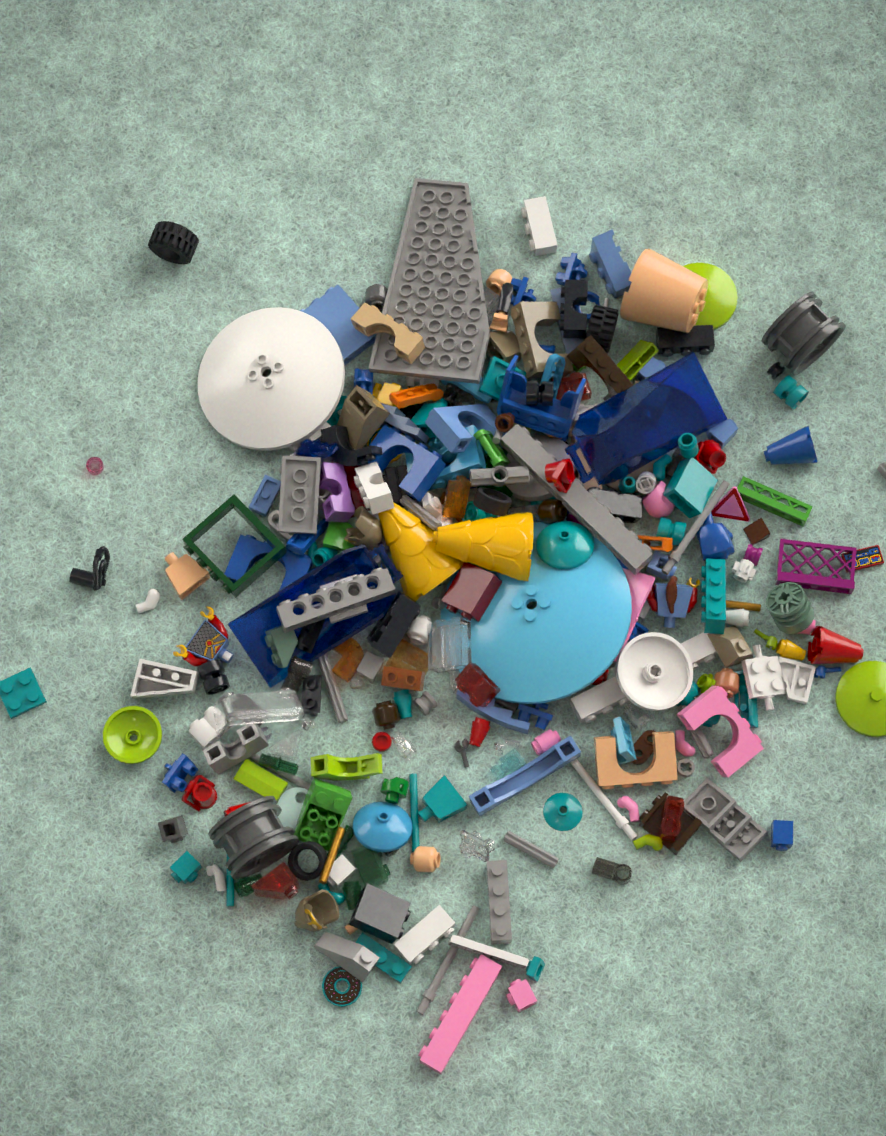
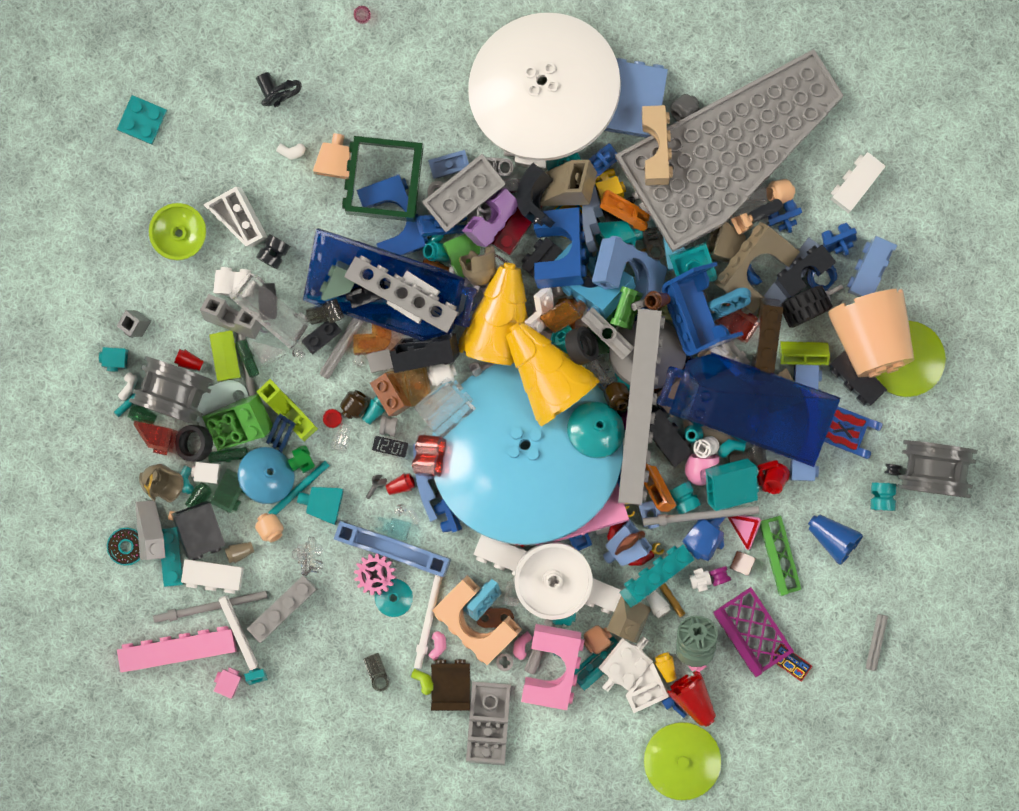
camera: 55 degrees right, 15 degrees up
(177, 773) = (179, 289): blue hips -> none
(203, 793) = (179, 322): red piece -> none
(207, 643) = (294, 224): torso -> none
(316, 449) = (511, 172): clear blue slope -> none
(332, 855) = (210, 458): pearl gold bar -> none
(363, 800) = (275, 442): none -> dark blue tile
(373, 489) = (509, 255): white arch -> none
(420, 512) = (528, 302): light grey axle -> none
(423, 900) = (238, 551): none -> dark tan cone
(442, 716) = (390, 446): none -> tile
(471, 592) = (498, 390): brick -> none
(528, 795) = (364, 568): none -> bright pink gear
(530, 849) = (344, 600): light grey axle -> none
(539, 393) = (701, 299): black wheel -> none
(545, 741) = (434, 541): bright pink brick -> none
(560, 473) = (644, 380): red piece -> none
(671, 816) = (447, 687): clear red brick -> none
(688, 445) = (760, 451): teal brick -> none
(705, 682) = (584, 623): lime plate -> none
(723, 378) = (848, 431): none -> flag
(771, 640) = (661, 647): lime hand -> none
(781, 834) = (512, 776): blue brick -> none

